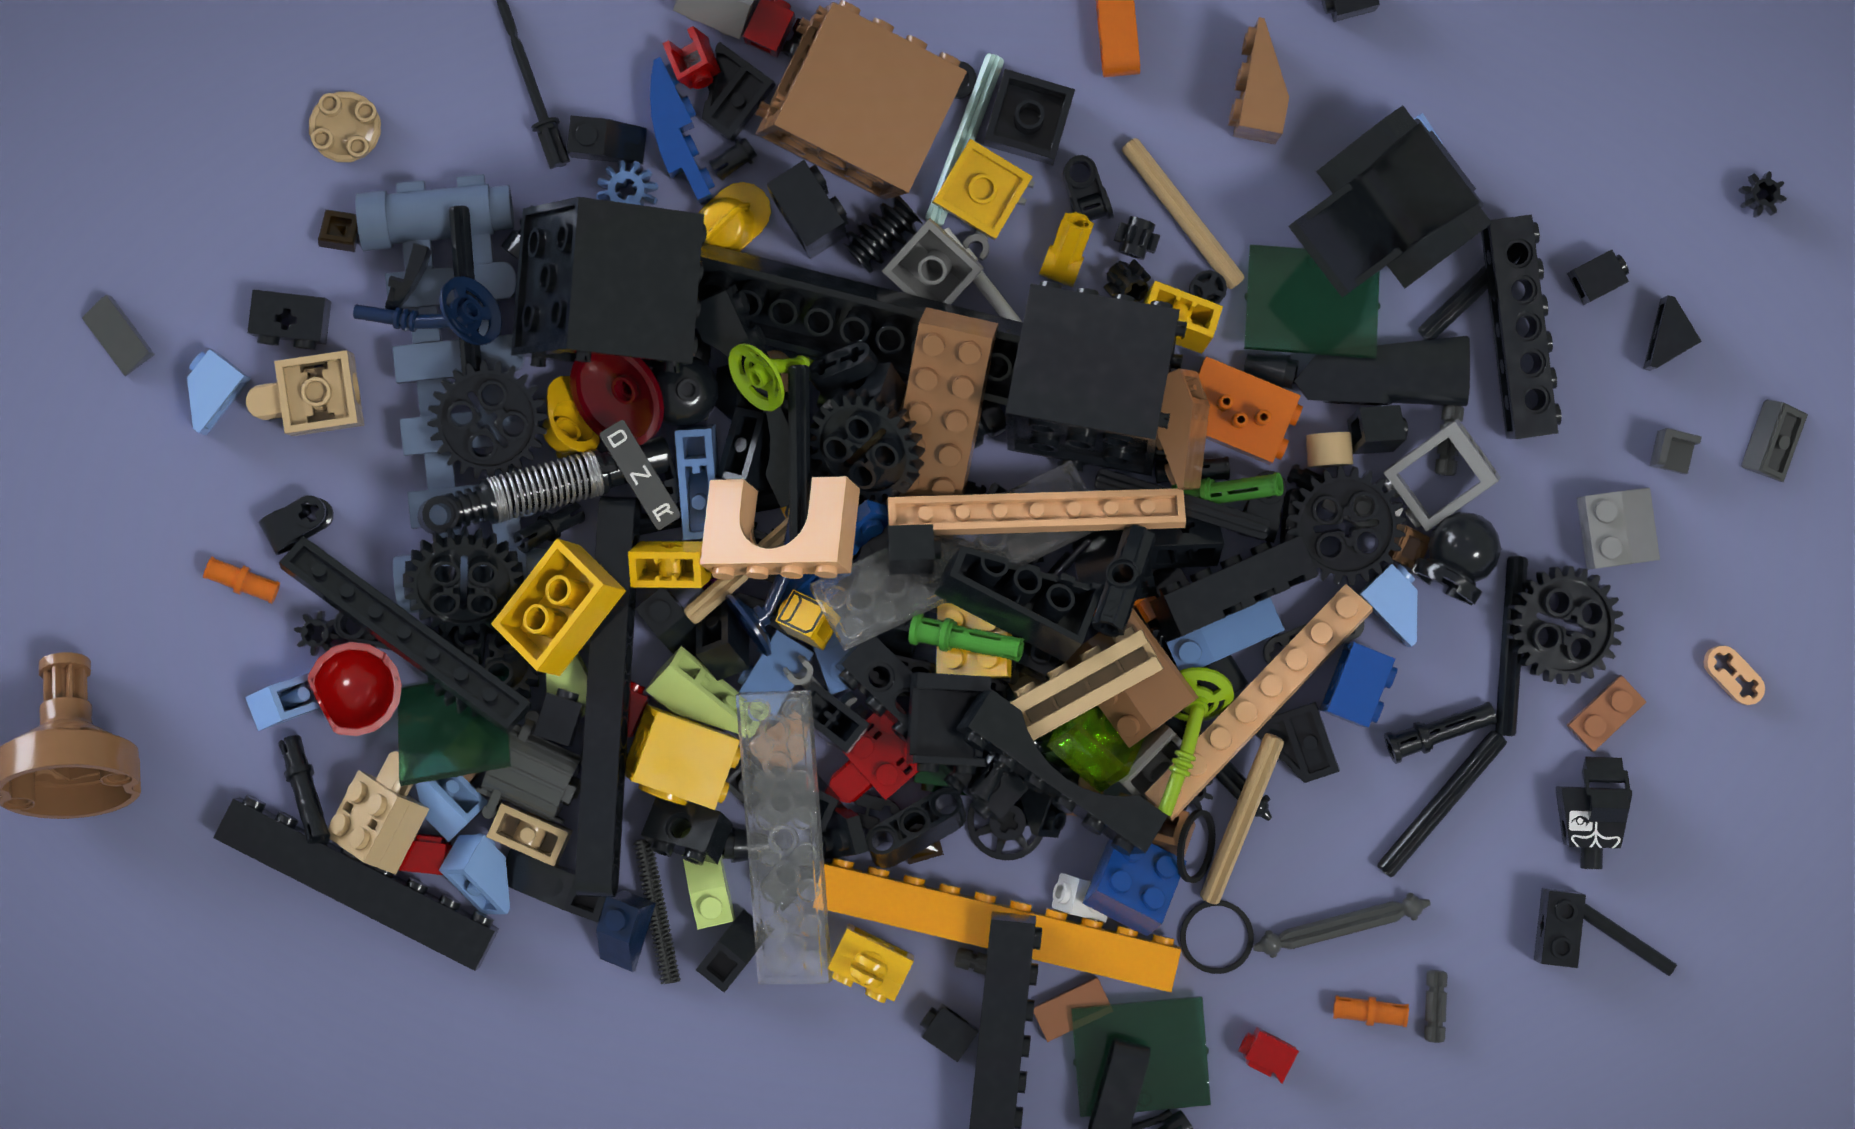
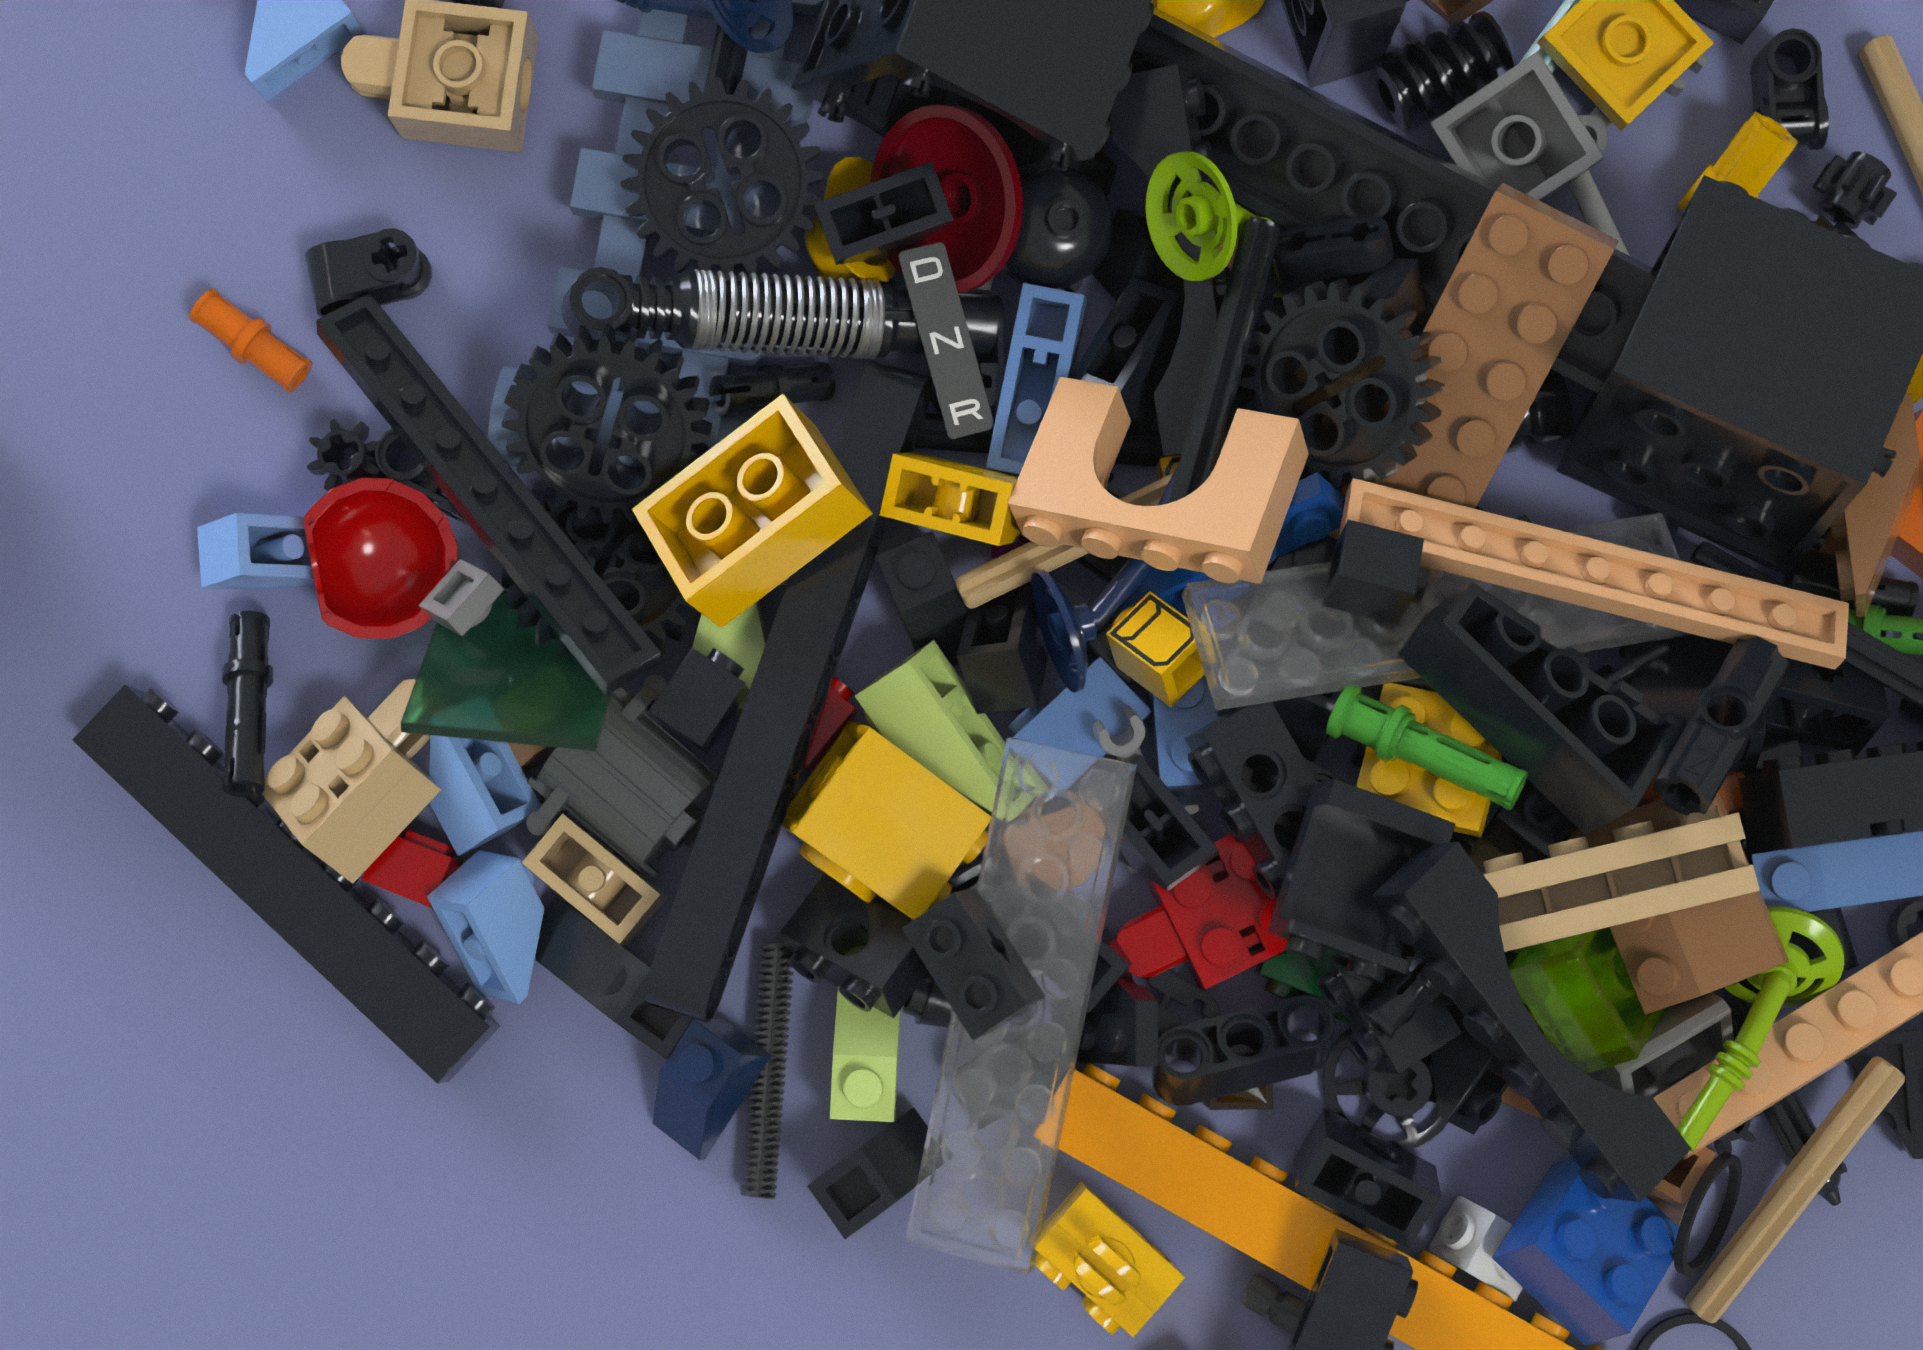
camera: 15 degrees right, 5 degrees down
(408, 697) = (462, 598): none -> light grey plate
(584, 414) = (884, 215): none -> black slope
(751, 824) = (973, 962): none -> black brick
(1003, 878) = (1366, 1178): none -> black brick

